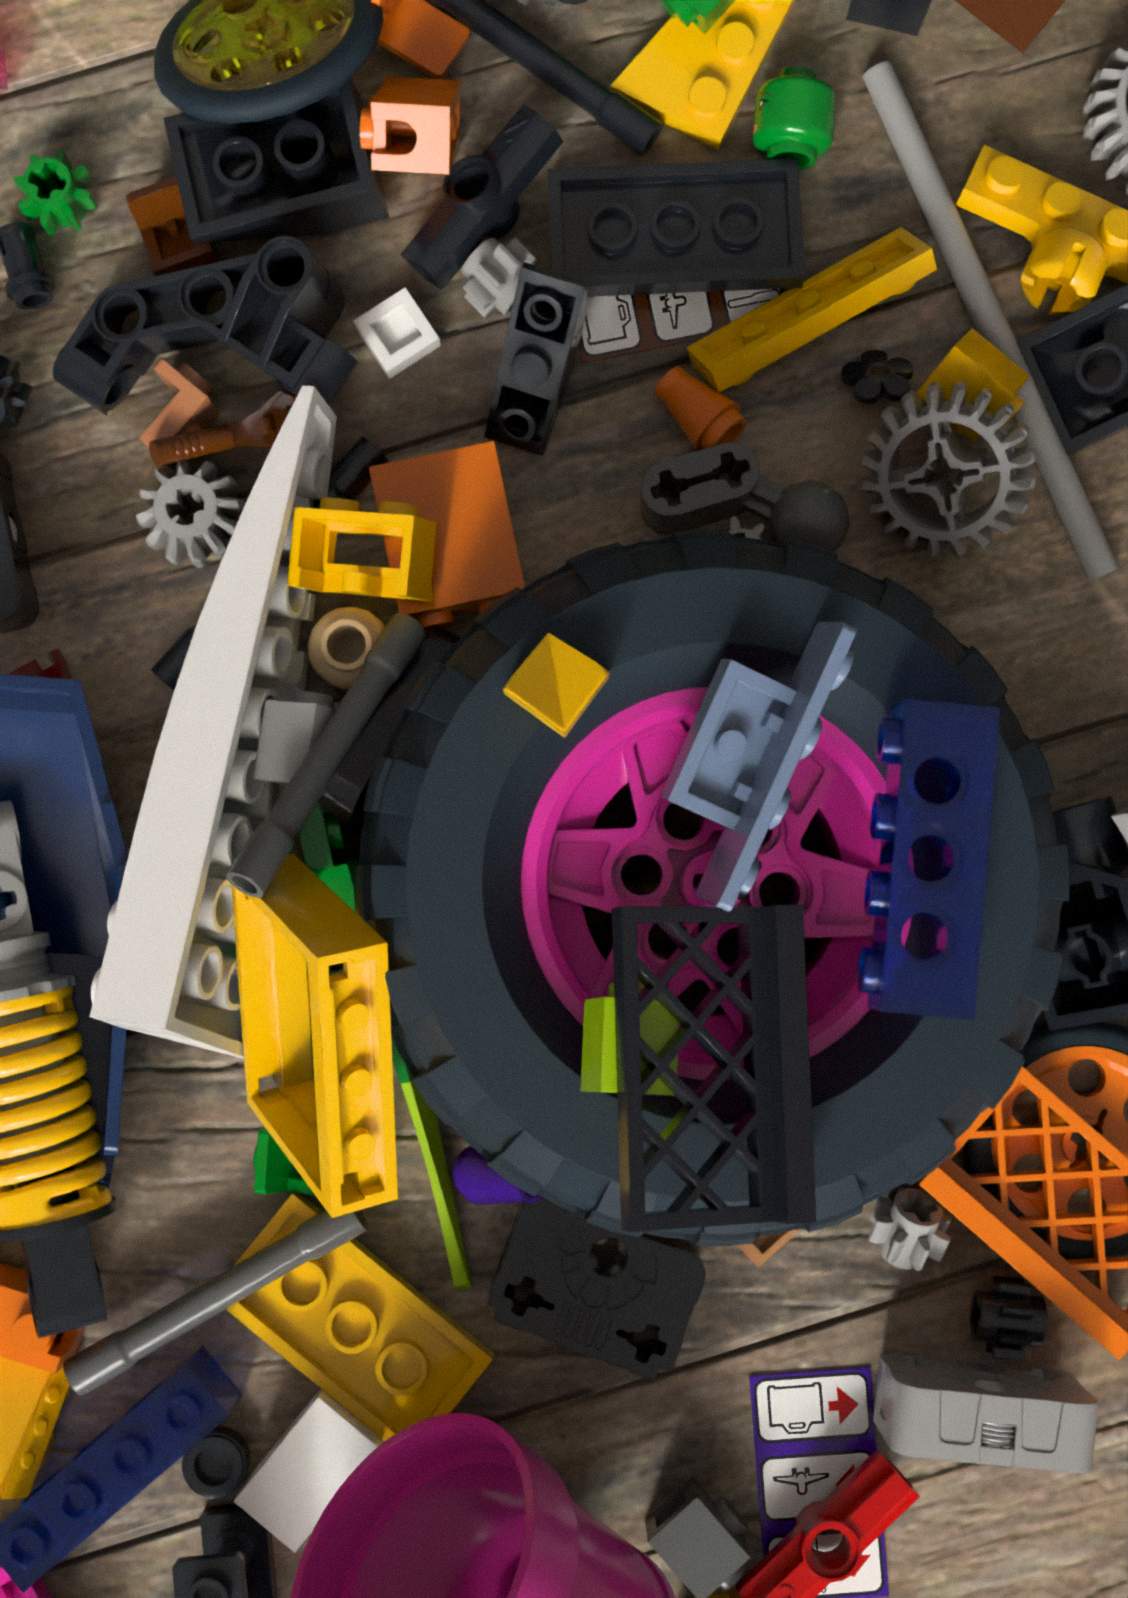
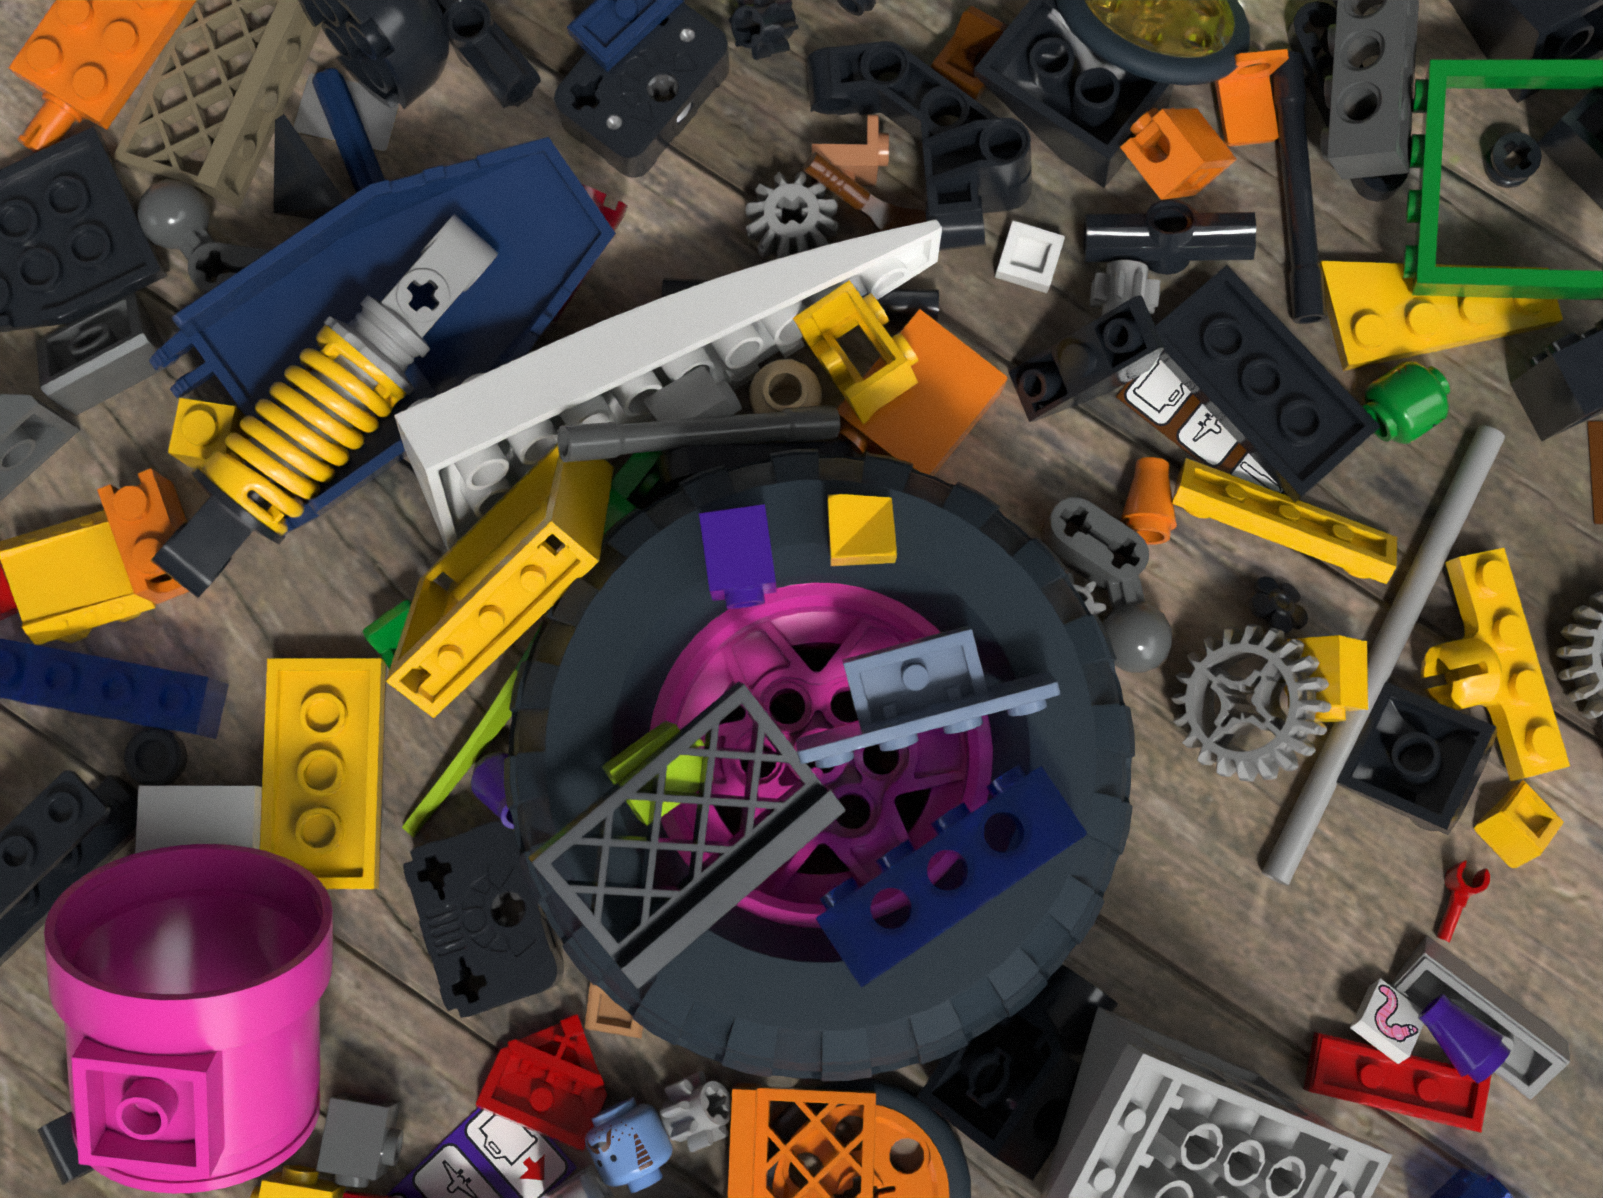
camera: 50 degrees right, 5 degrees down
(124, 1348) = (186, 629): dark grey piece -> none
(492, 813) = (738, 555): none -> dark purple brick
(782, 1338) = (547, 1084): none -> red slope
(892, 1310) = (628, 1145): none -> medium blue head

